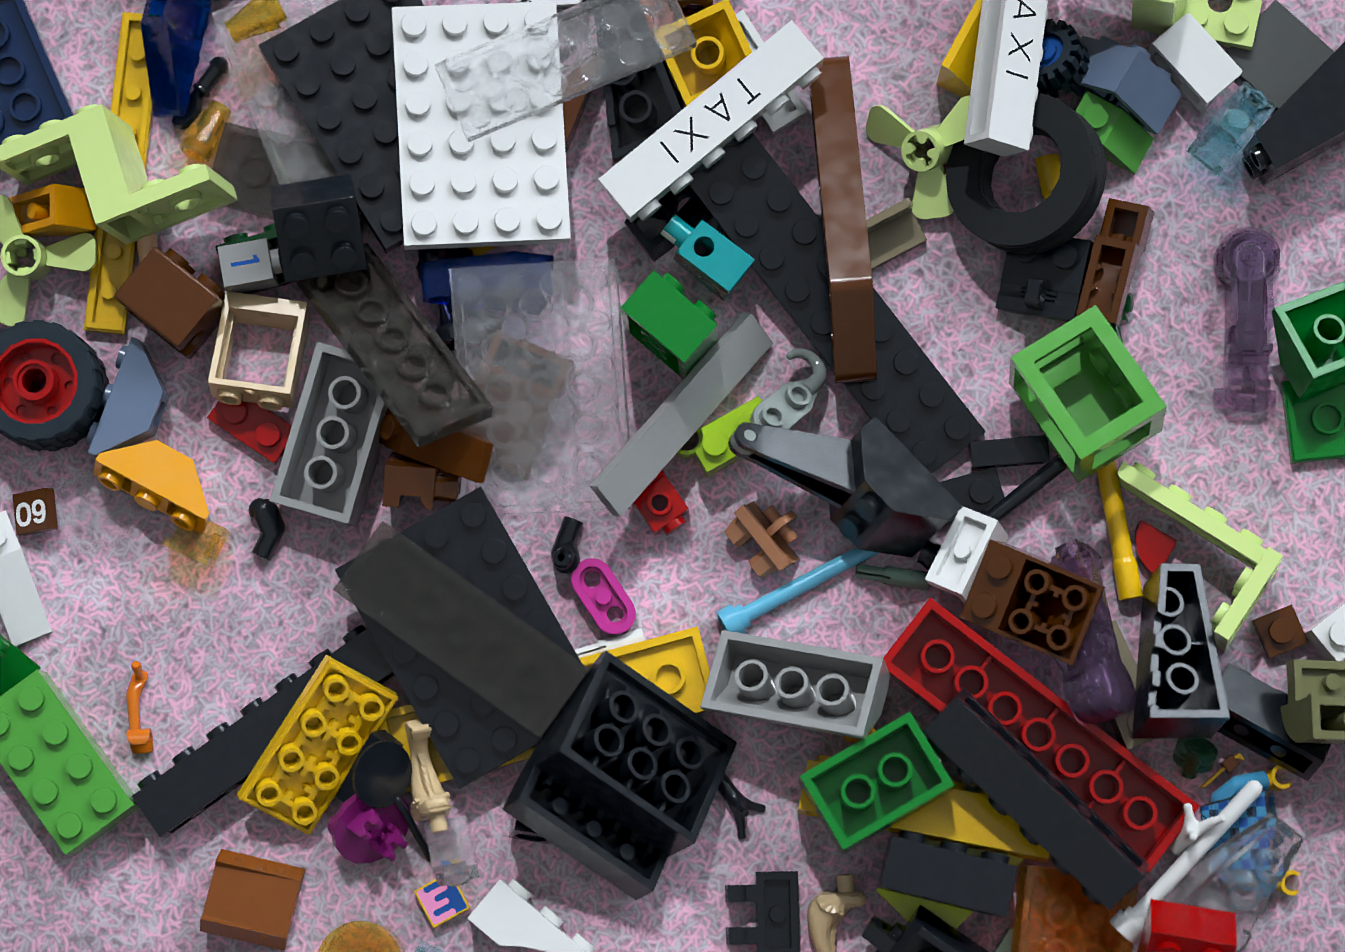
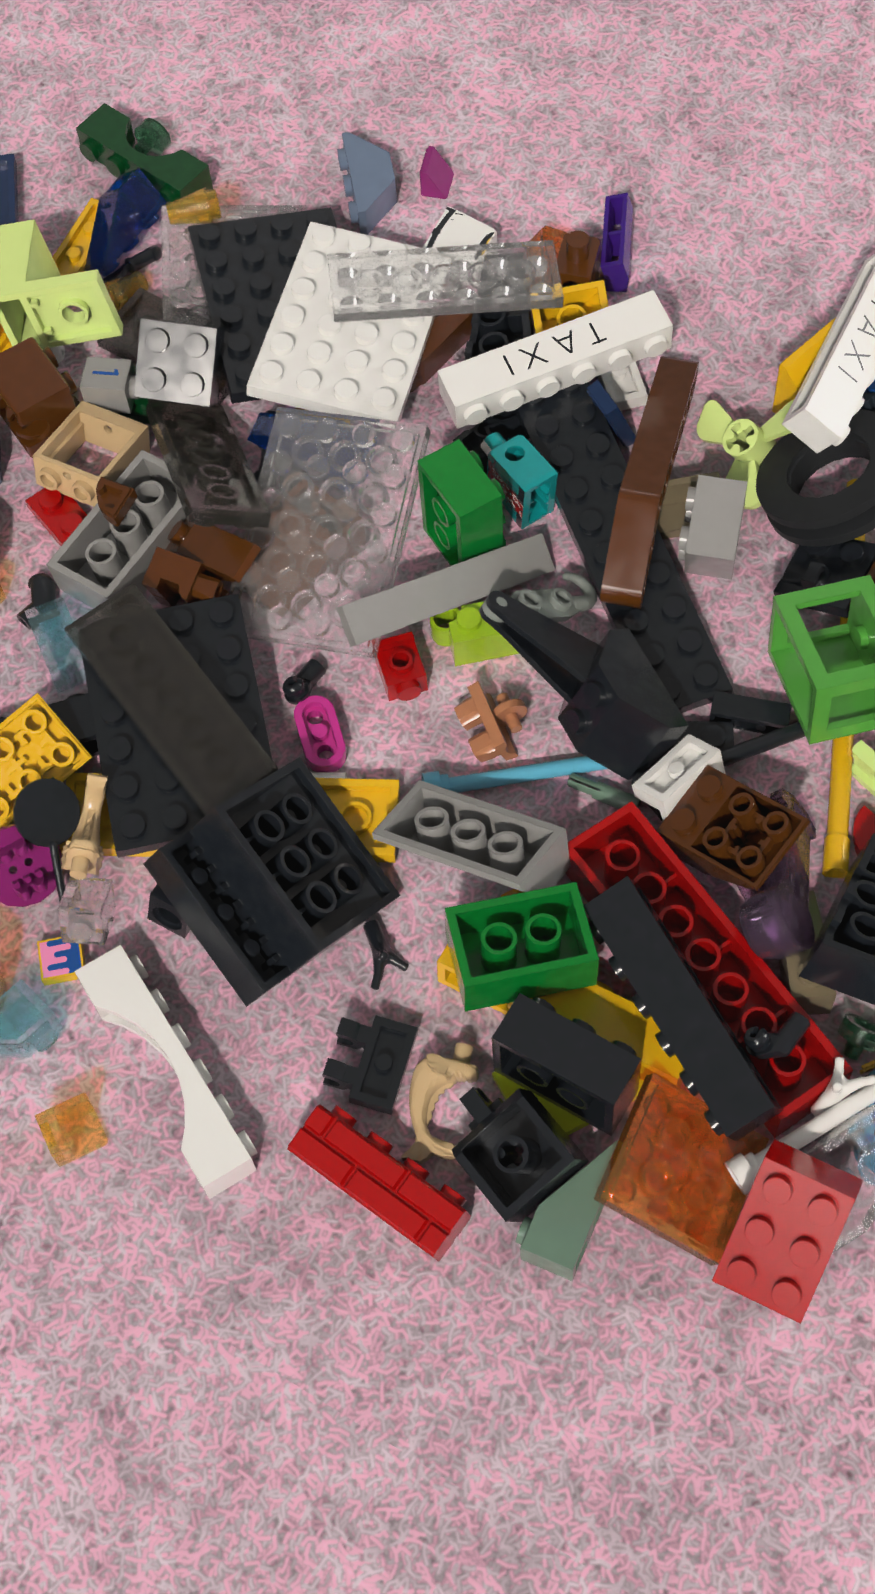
camera: 15 degrees right, 20 degrees down
(307, 572) = (57, 649): none -> clear light blue slope
(313, 412) = (114, 500): none -> reddish brown tile
(780, 154) = (612, 413): none -> dark blue tile
(923, 268) = (715, 524): none -> light grey brick
(1129, 804) = (776, 1044): none -> black arm

